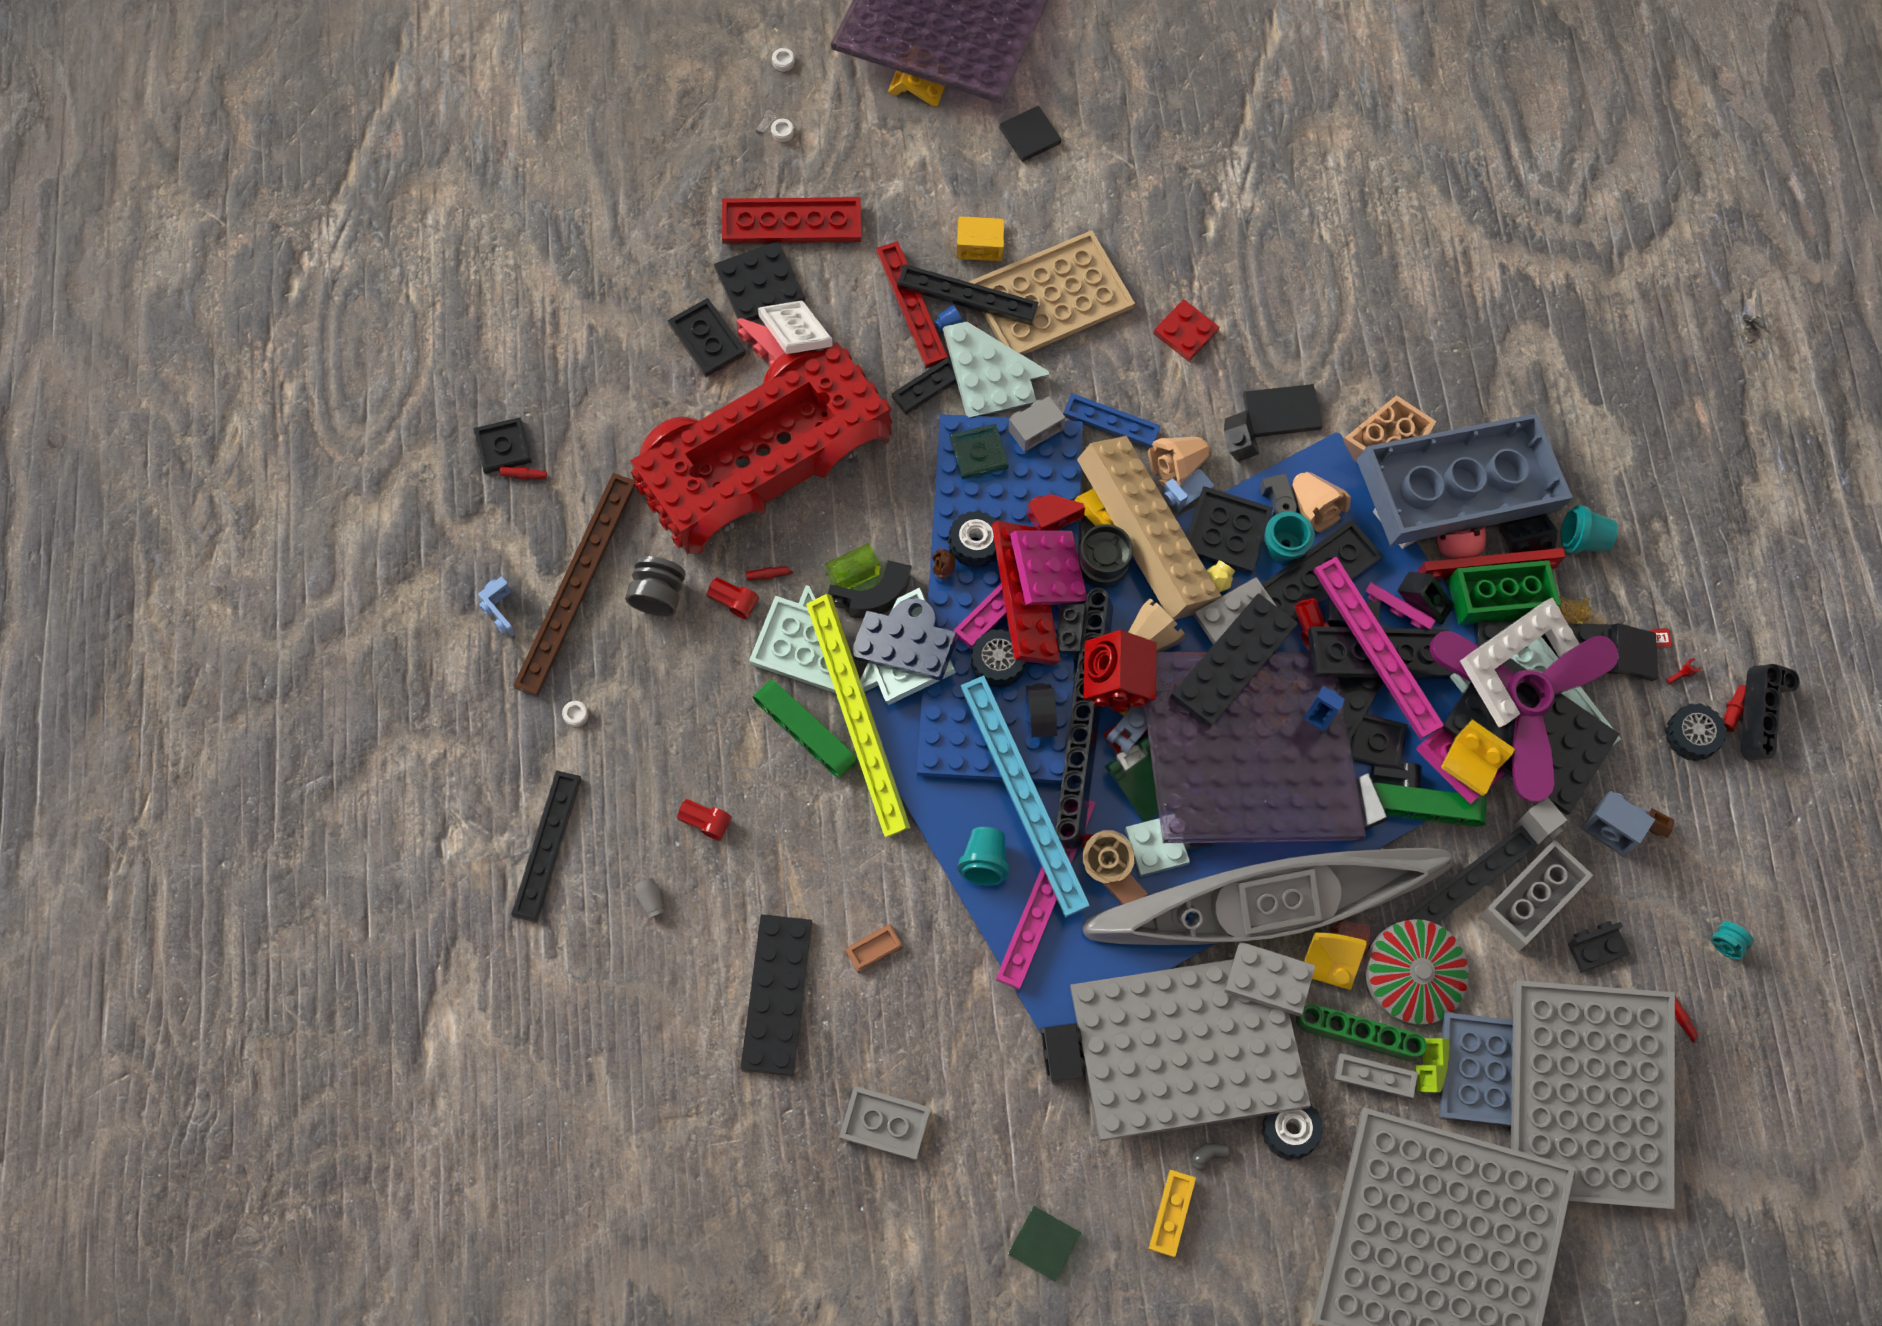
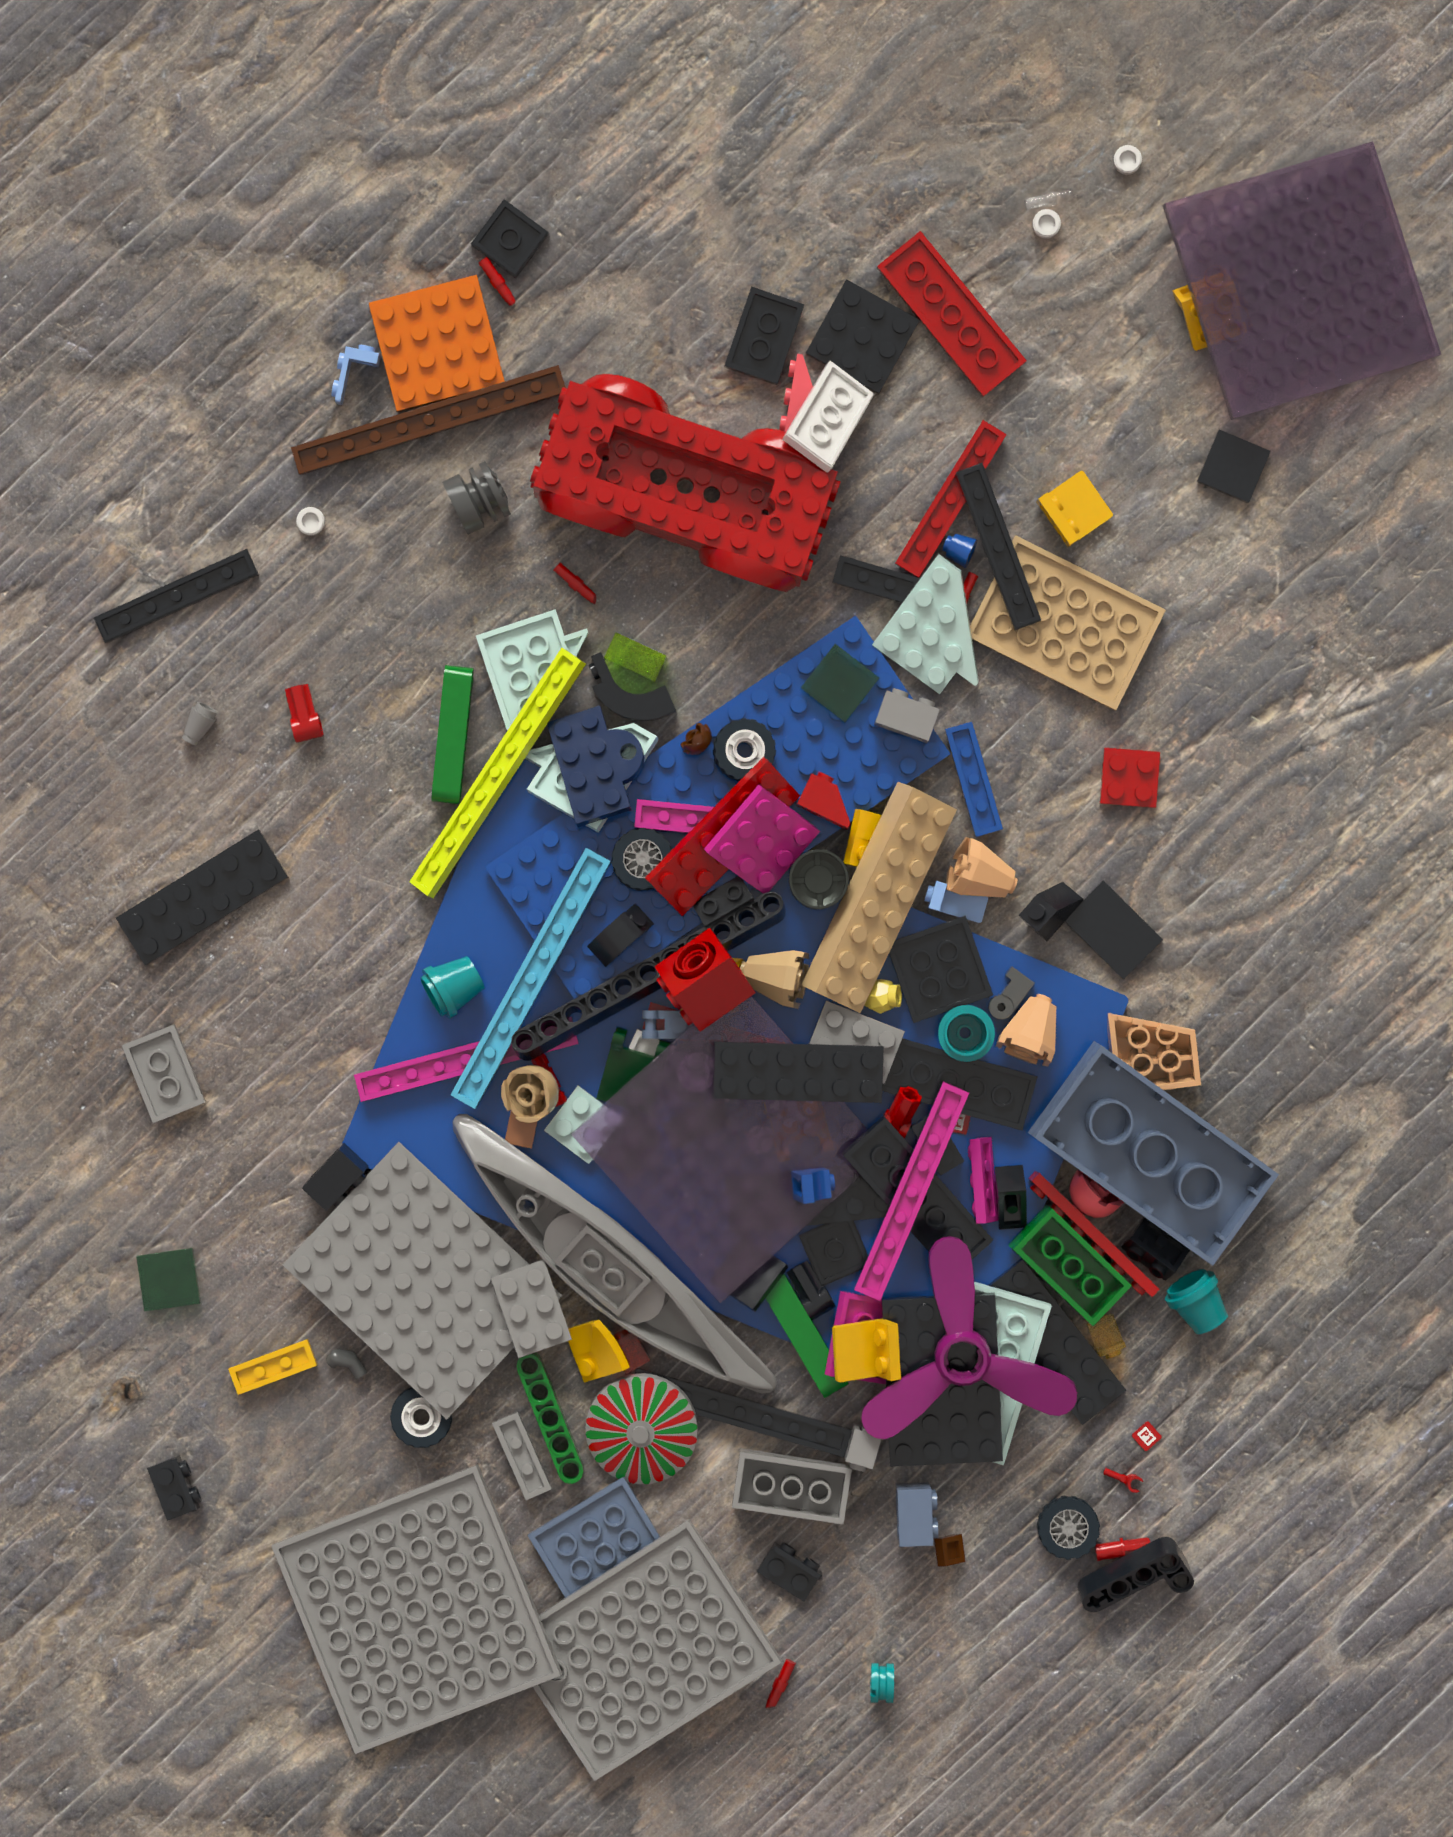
camera: 55 degrees right, 20 degrees up
(527, 541) = (436, 343): none -> orange plate
(738, 600) = (526, 578): red piece -> none
(873, 948) = (305, 948): nougat tile -> none
(1435, 1065) = (564, 1501): lime slope -> none
(1481, 662) = (950, 1297): white plate -> none
(1635, 652) = (1106, 1422): black tile -> none

